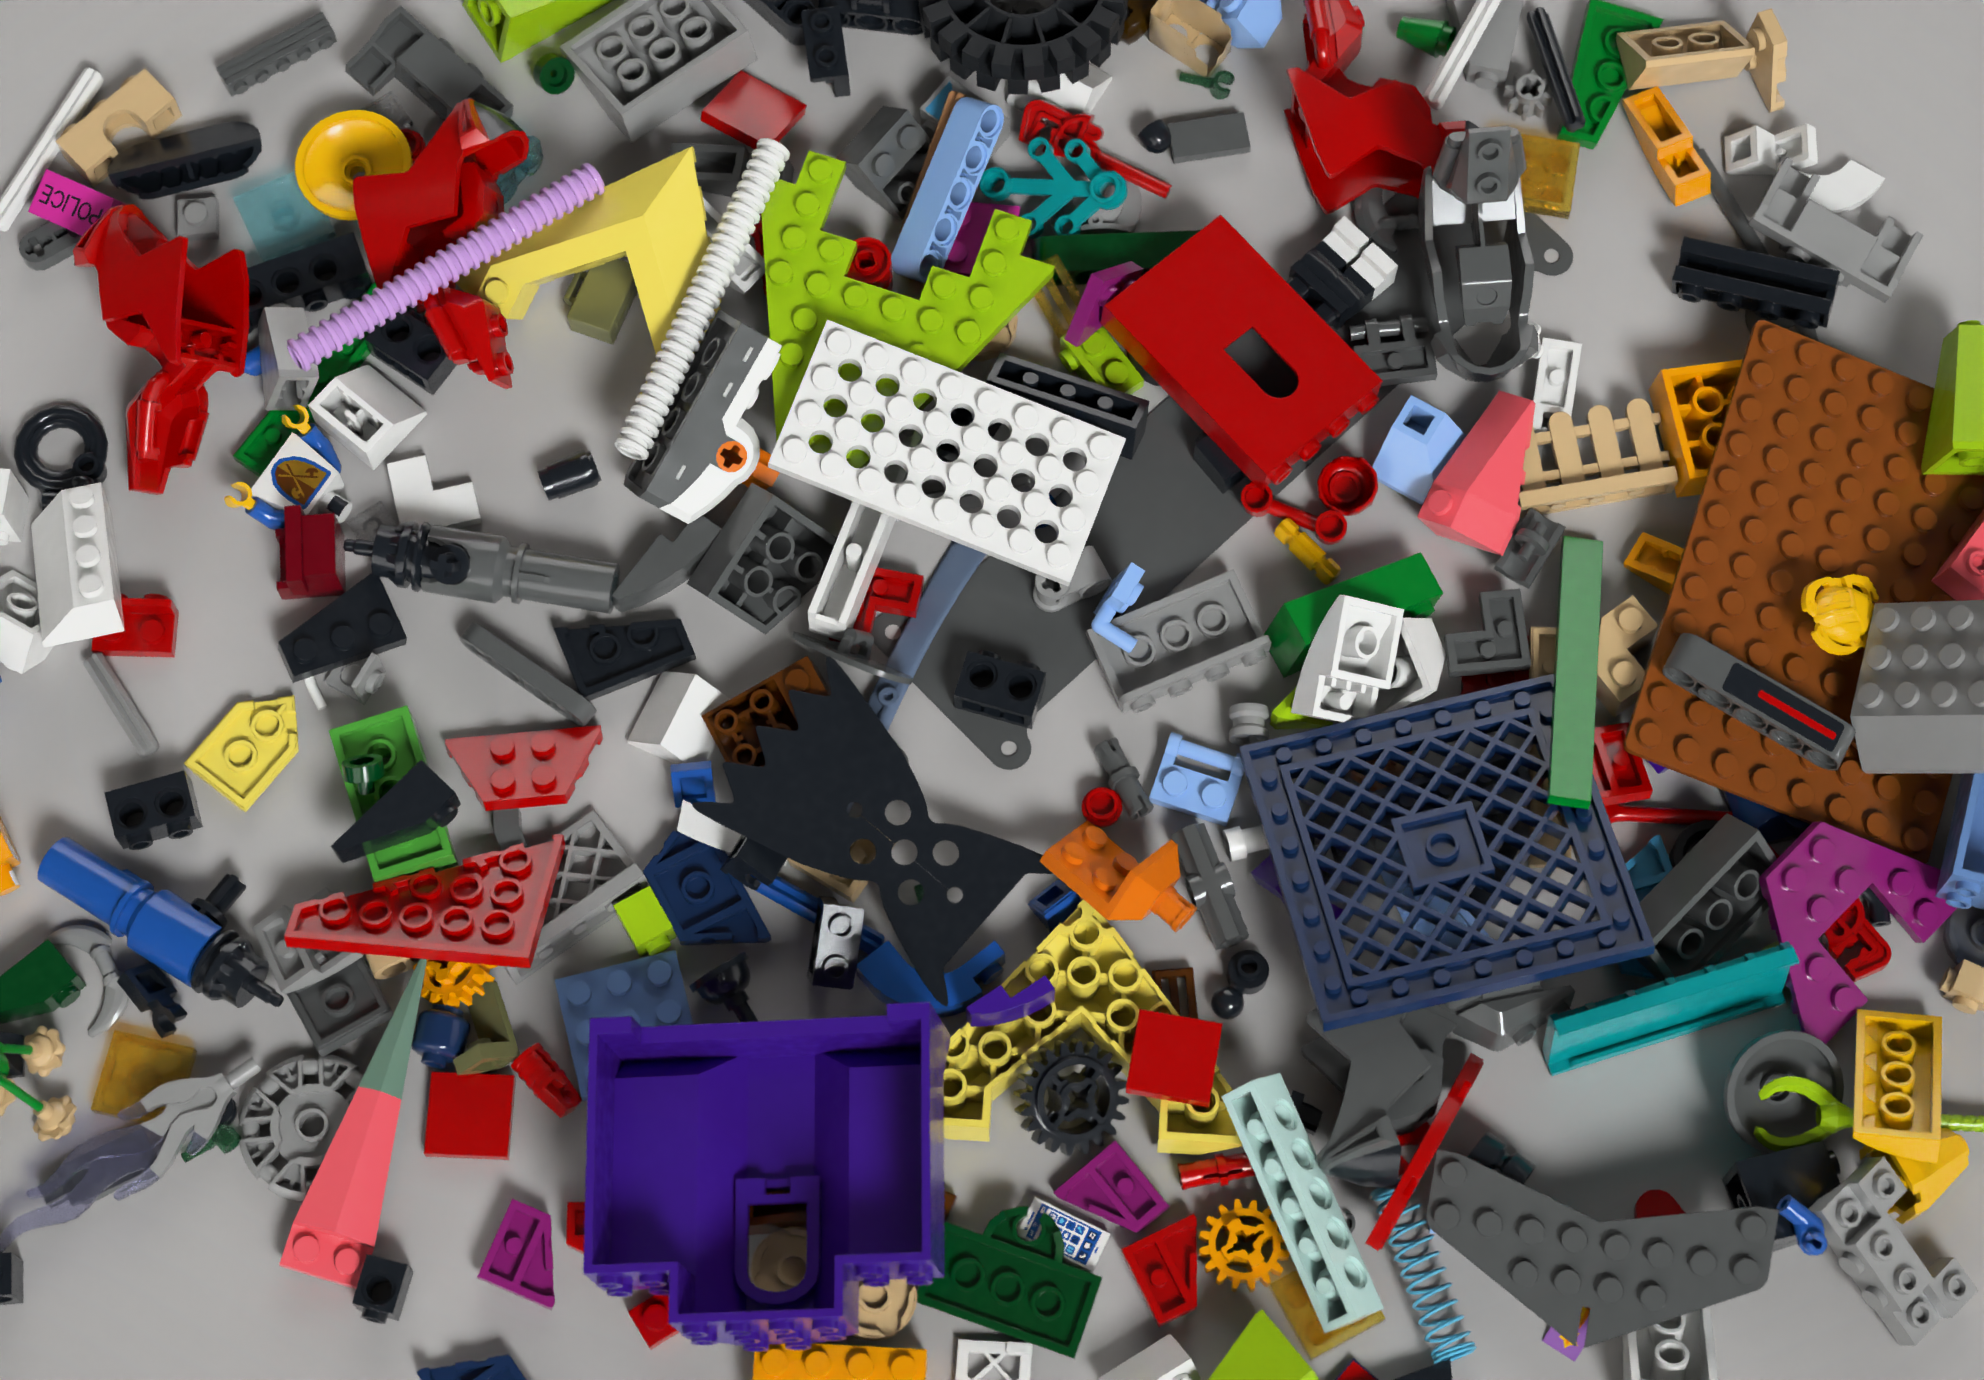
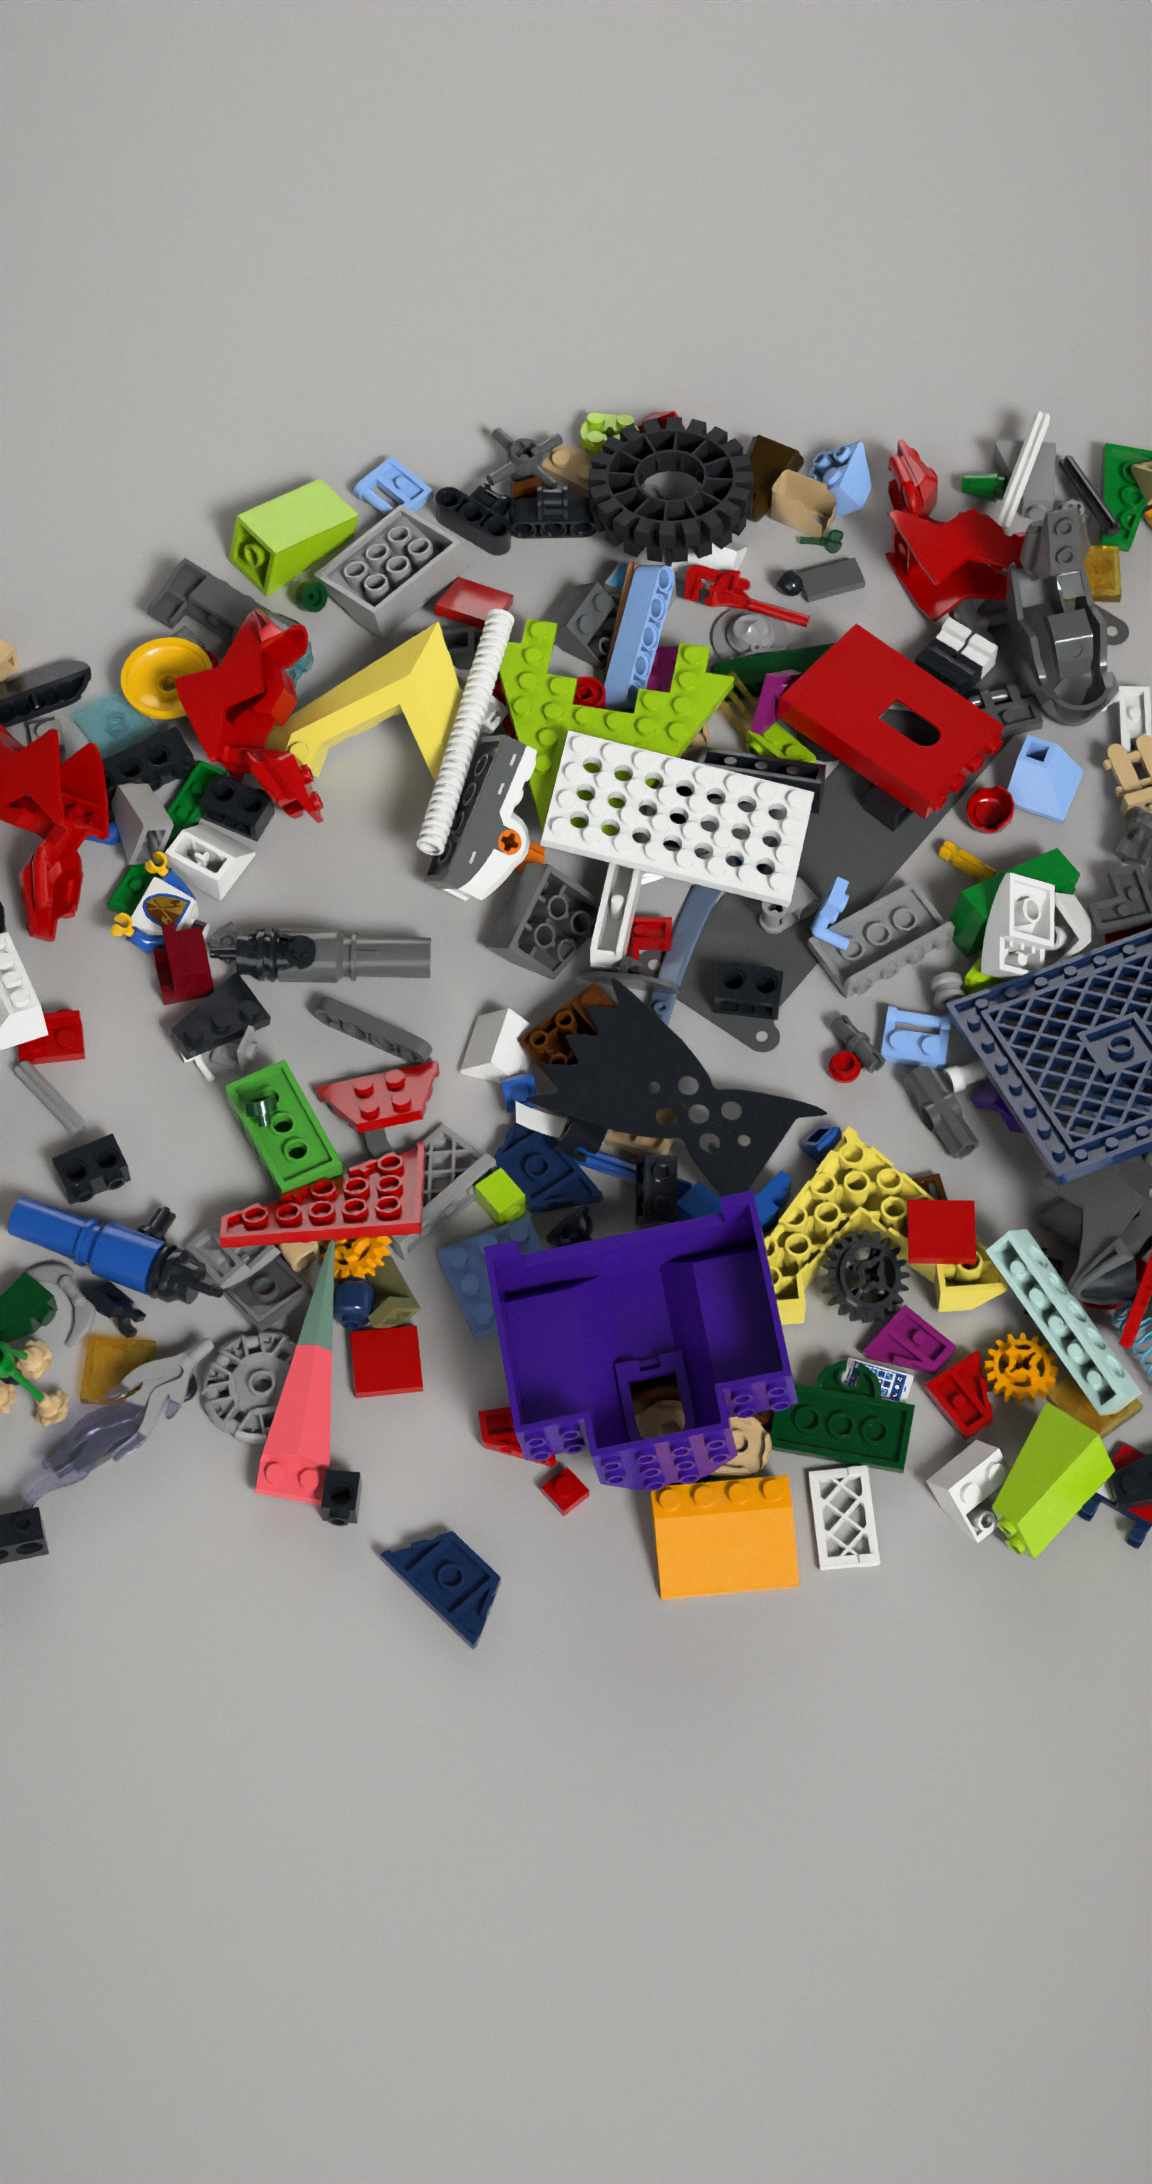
camera: 10 degrees left, 10 degrees down
(224, 1137) = (191, 1405): clear green hand -> none
(247, 749) = (157, 1117): light yellow tile -> none
(277, 54) = (88, 611): dark grey piece -> none
(404, 813) = (298, 1135): black slope -> none
(419, 501) = (257, 912): white tile -> none
(445, 266) = (260, 731): lavender piece -> none
(522, 1255) = (448, 1458): magenta wing -> none
(546, 1080) = (443, 1325): red hinge -> none
(569, 475) = (378, 882): black piece -> none
(601, 301) = (380, 752): olive piece -> none
(619, 656) = (444, 1008): black wing -> none
(665, 565) = (467, 936): dark grey slope -> none
(826, 48) = (524, 550): black bracket -> none
(999, 1008) = (800, 1212): dark purple slope -> none
(1060, 189) = (725, 626): teal plant -> none
(1115, 880) = (870, 1116): orange plate -> none
(1215, 1170) = (990, 1317): red pin -> none
(1228, 1000) = (979, 1178): black plate -> none
(1329, 526) = (980, 843): red bar -> none
(1480, 484) = (1093, 794): coral wedge -> none

